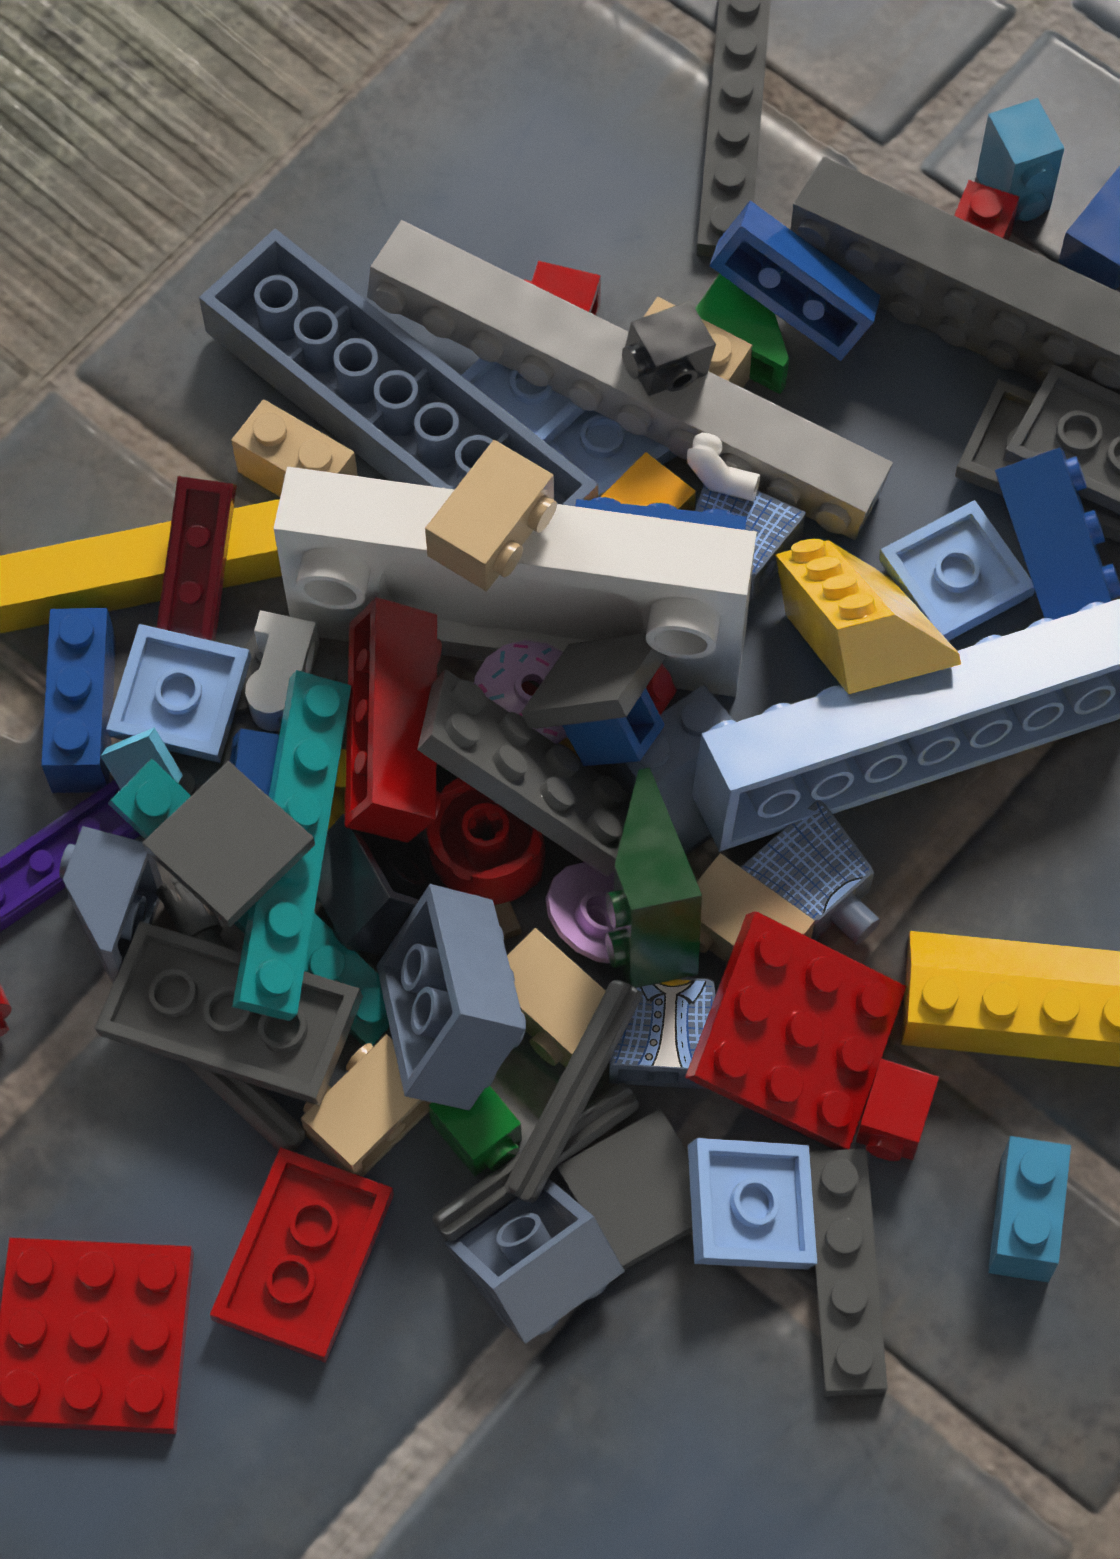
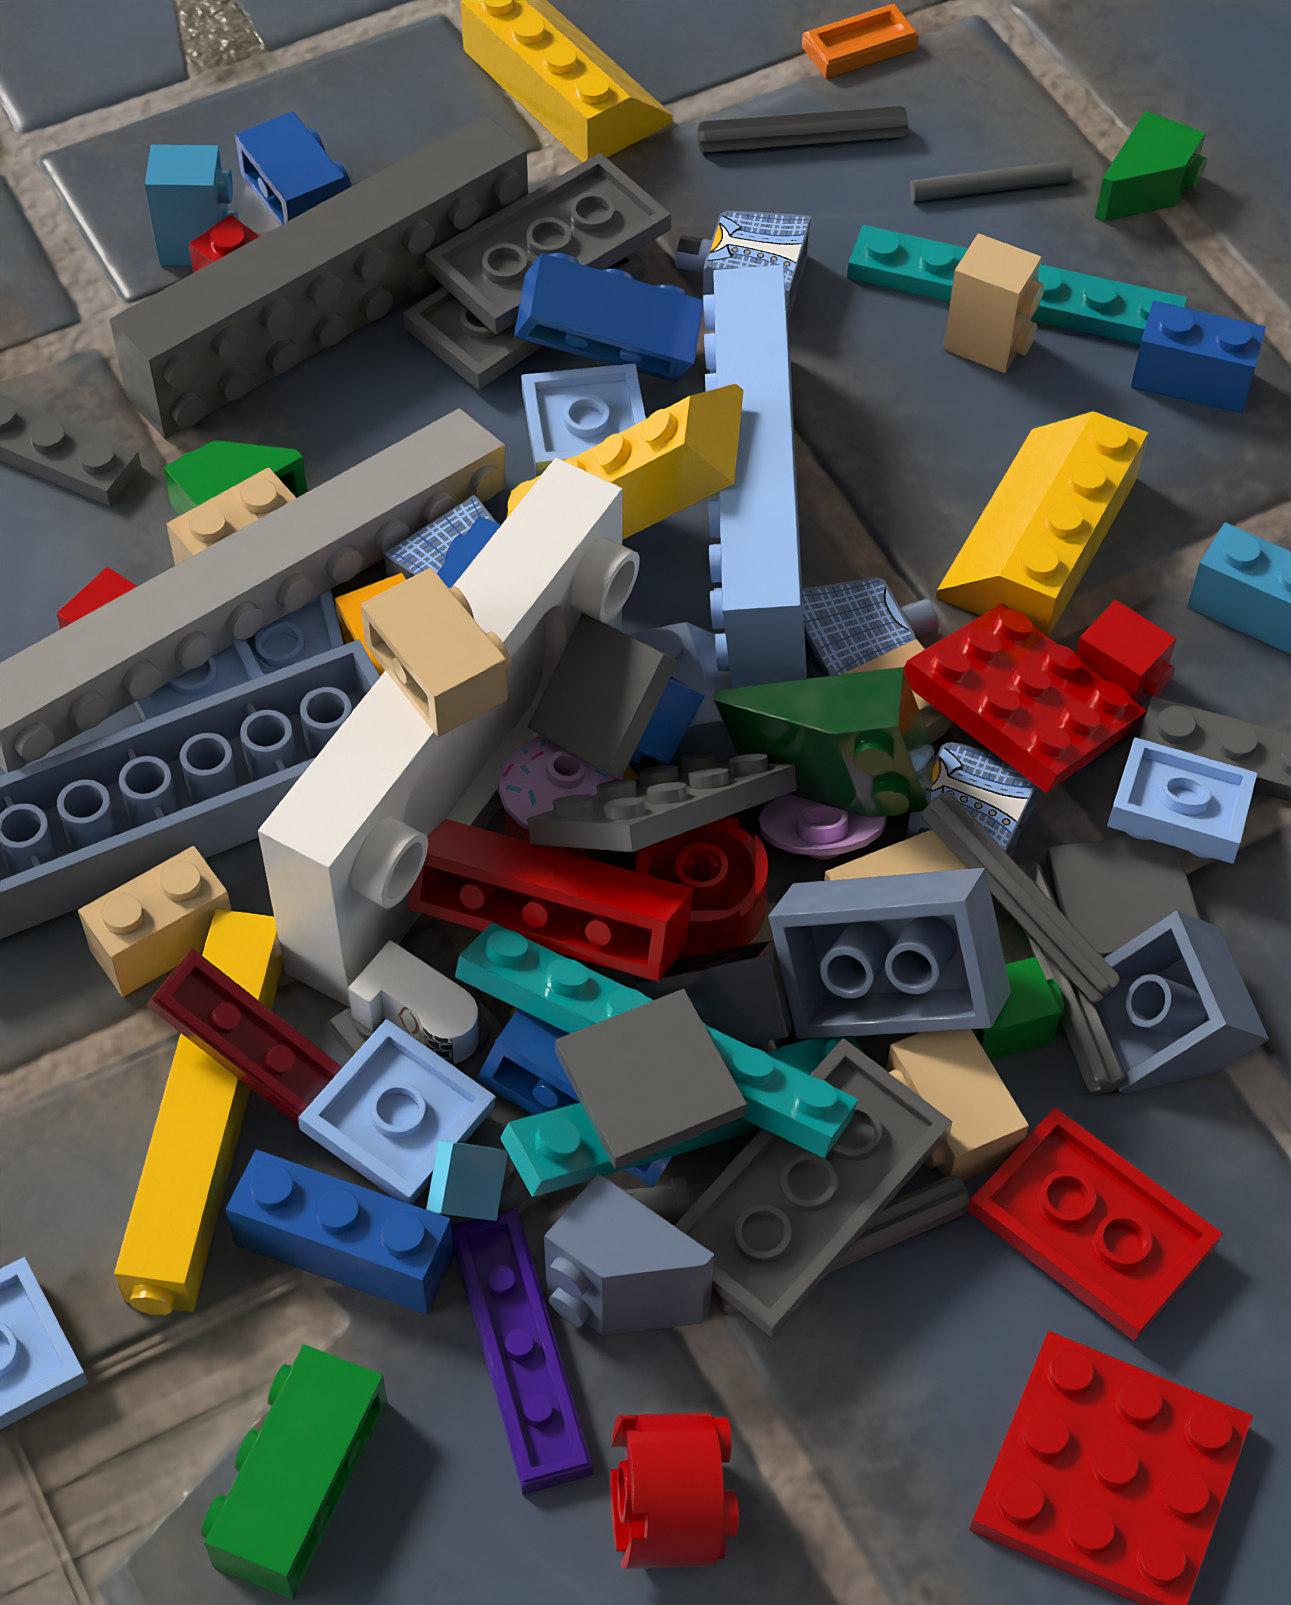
camera: 70 degrees left, 10 degrees down
(668, 349) = (256, 512): black brick -> none
(715, 474) = (398, 541): white arm -> none
(795, 281) = (217, 408): blue brick -> none

